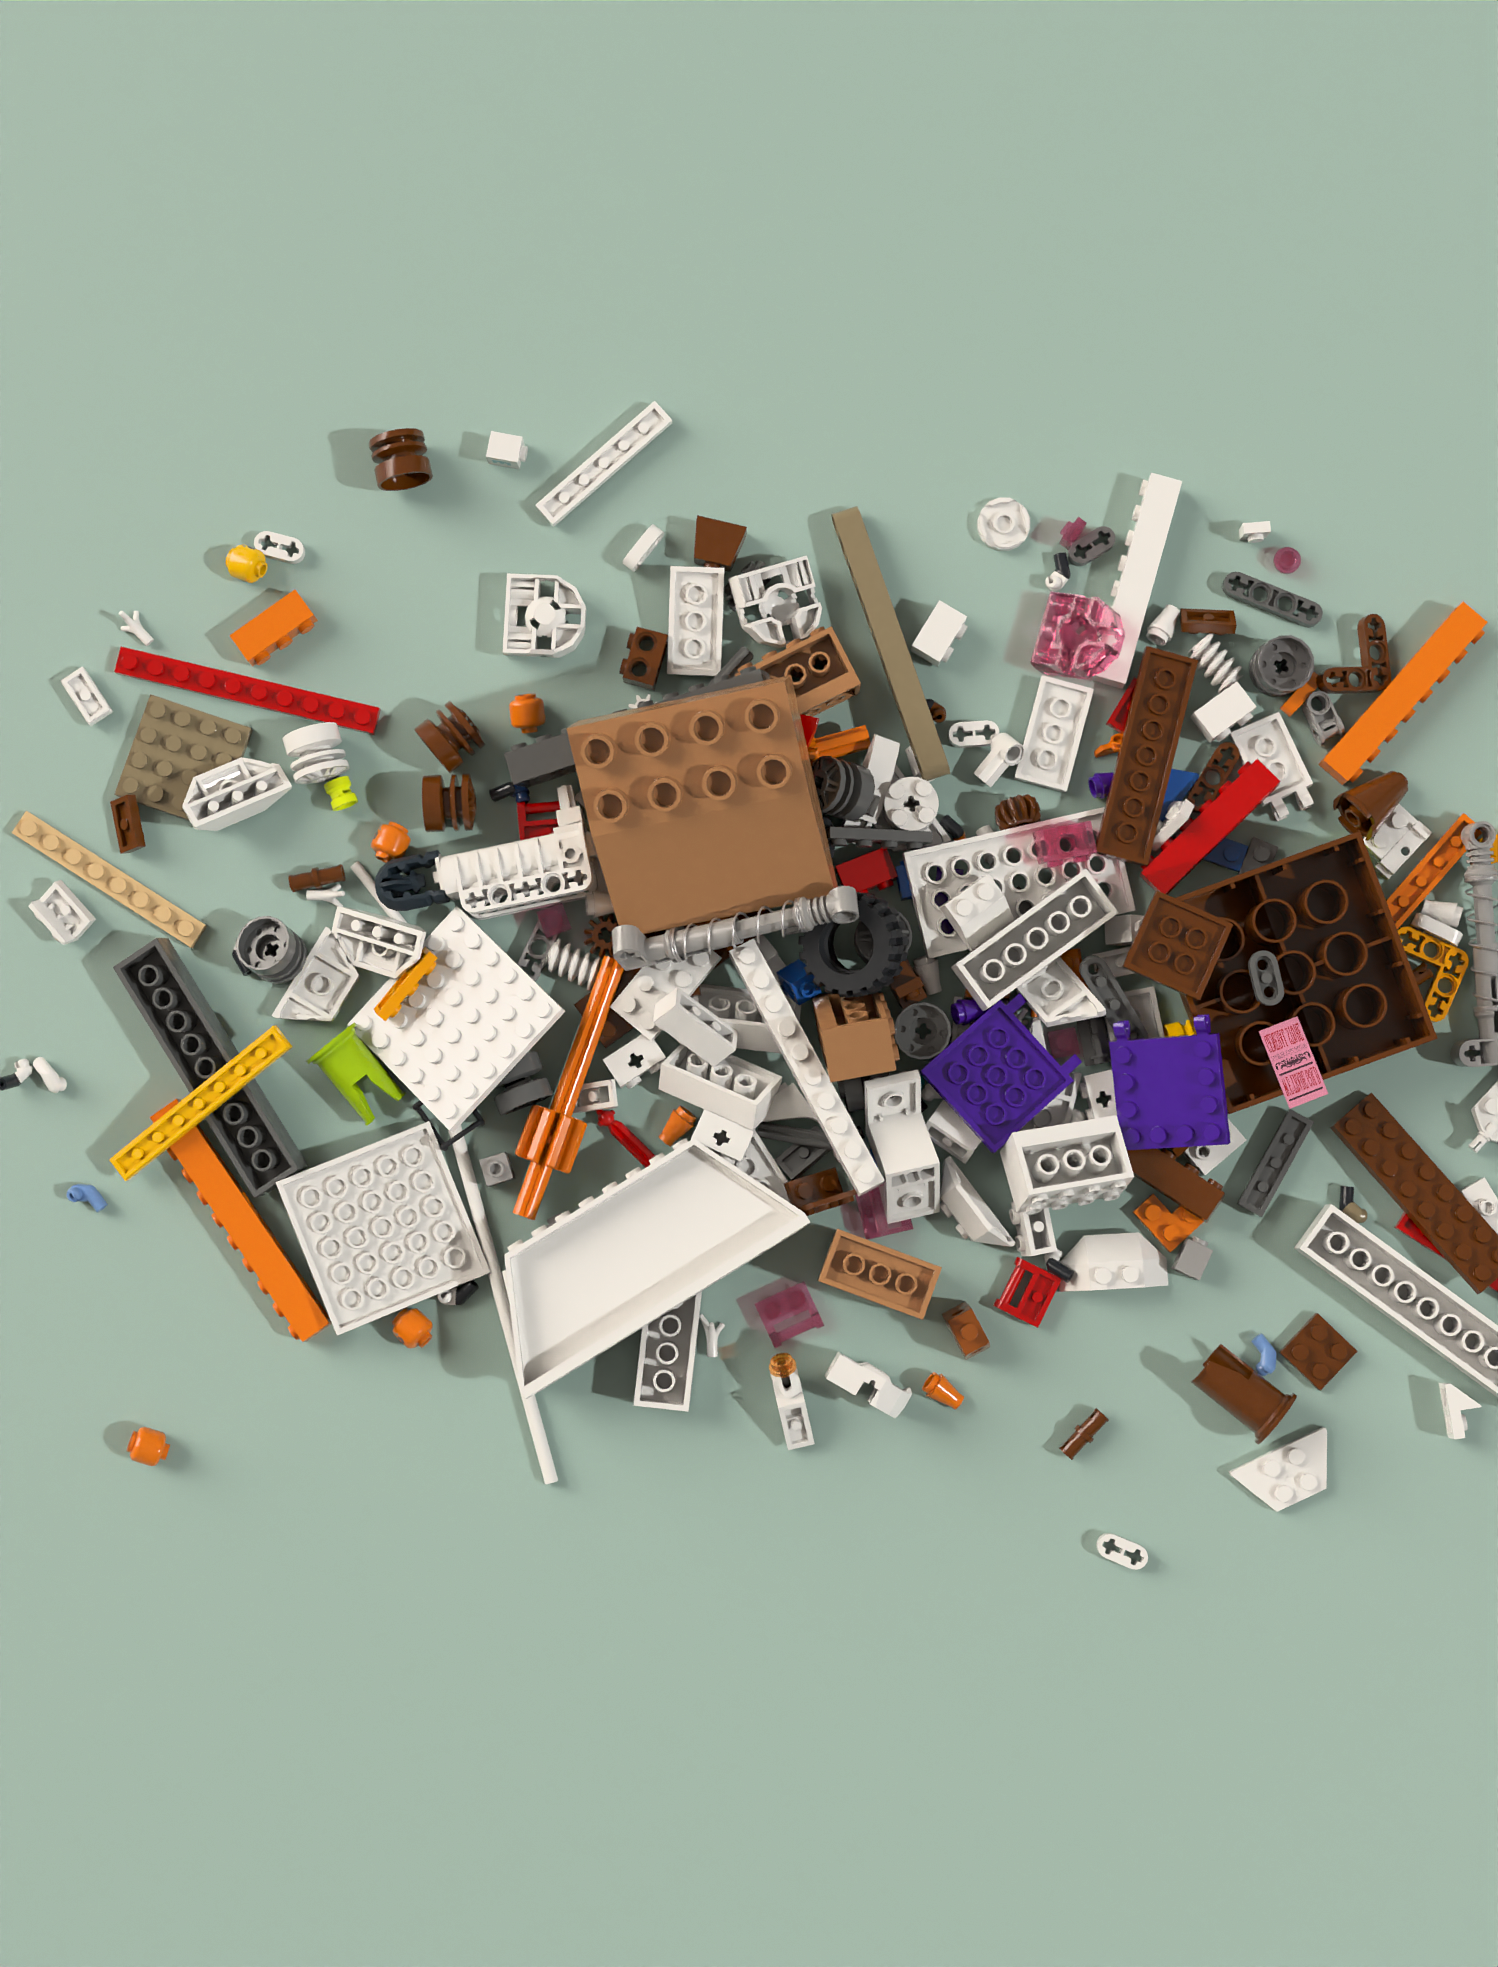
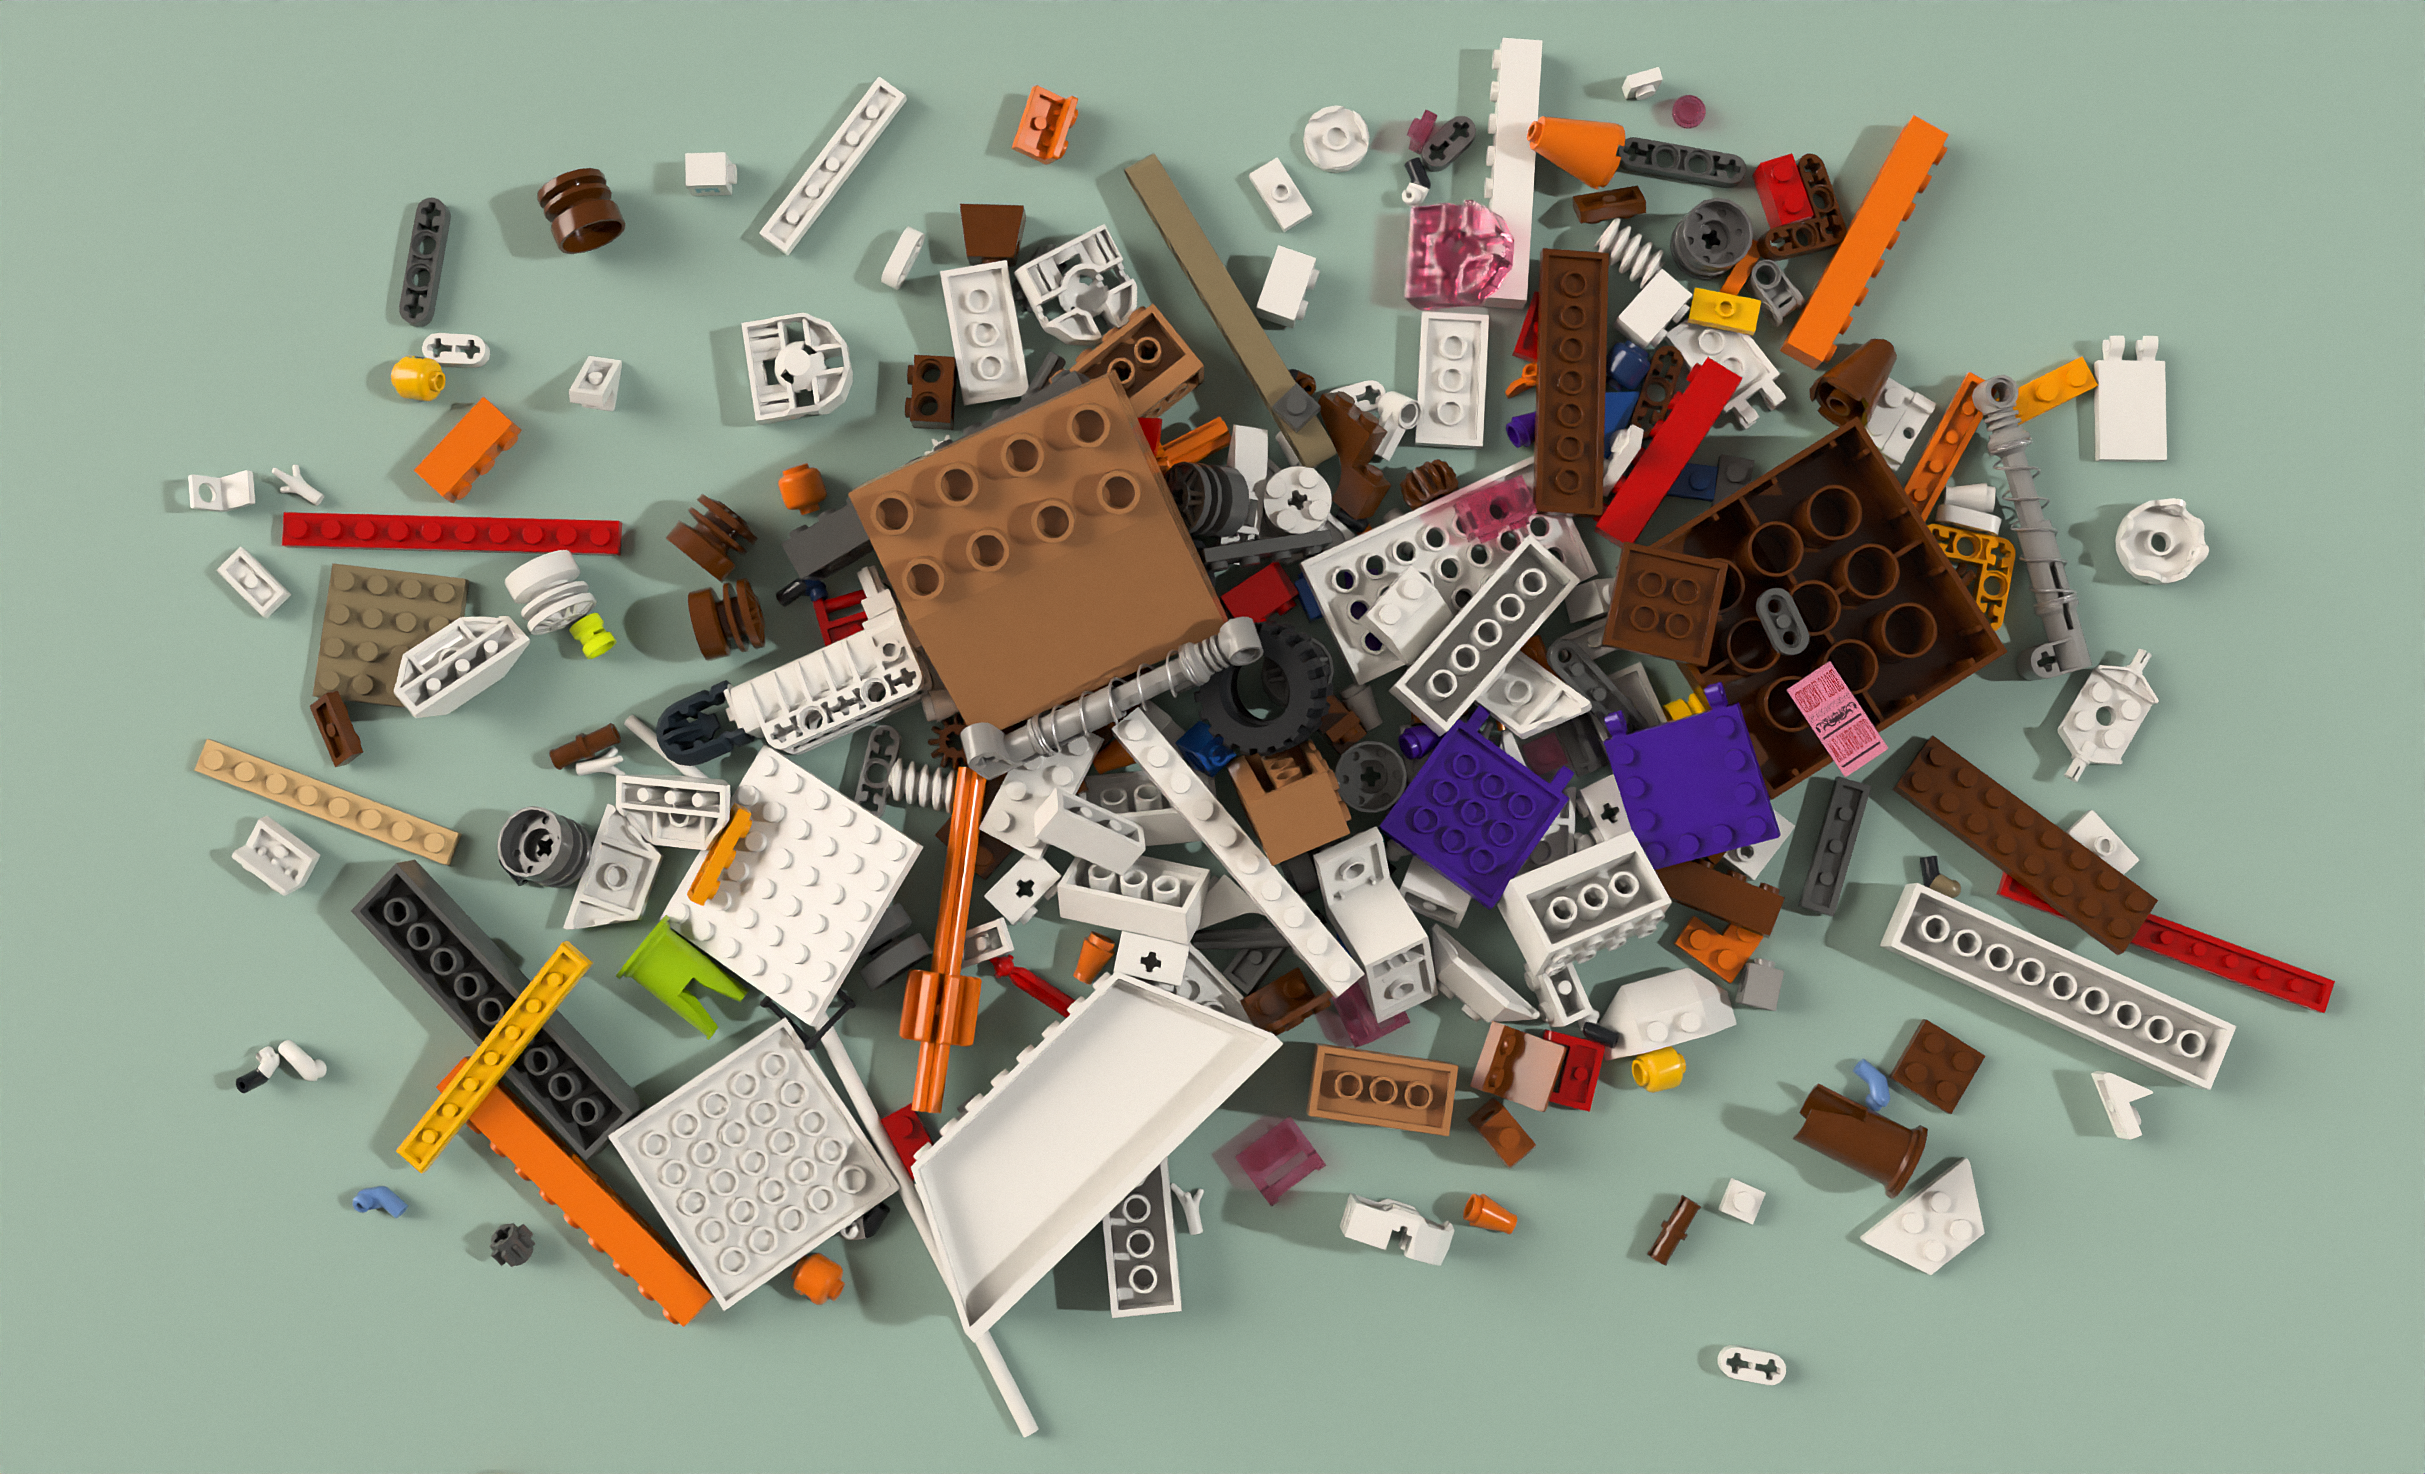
camera: 15 degrees left, 0 degrees up
(80, 621) = (227, 492): none -> white bracket
(182, 1251) = (512, 1244): none -> dark grey gear
(265, 472) = (418, 262): none -> dark grey beam
(384, 596) = (597, 384): none -> white slope
(390, 842) = (666, 682): orange head -> none
(497, 1169) = (882, 1059): light grey brick -> none
(503, 1232) = (906, 1134): none -> red plate
(554, 920) = (888, 736): clear pink plate -> none
(724, 974) = (1112, 758): none -> orange cone
(777, 466) = (1045, 125): none -> orange bracket
(790, 1401) = (1305, 1269): white plate -> none
(926, 731) = (1296, 408): none -> dark grey plate
(950, 559) = (1280, 194): none -> white plate
(967, 766) = (1356, 439): none -> reddish brown arch
(989, 1280) = (1518, 1066): none -> bracket
(1099, 1306) = (1659, 1069): none -> yellow head
(1142, 1423) = (1742, 1201): none -> white plate
(1162, 628) = (1556, 223): white cone -> none
(1192, 572) = (1579, 147): none -> orange cone
(1193, 751) = (1626, 365): none -> dark blue head
(1279, 725) = (1724, 311): none -> yellow plate
(1346, 640) = (1782, 191): none -> red brick

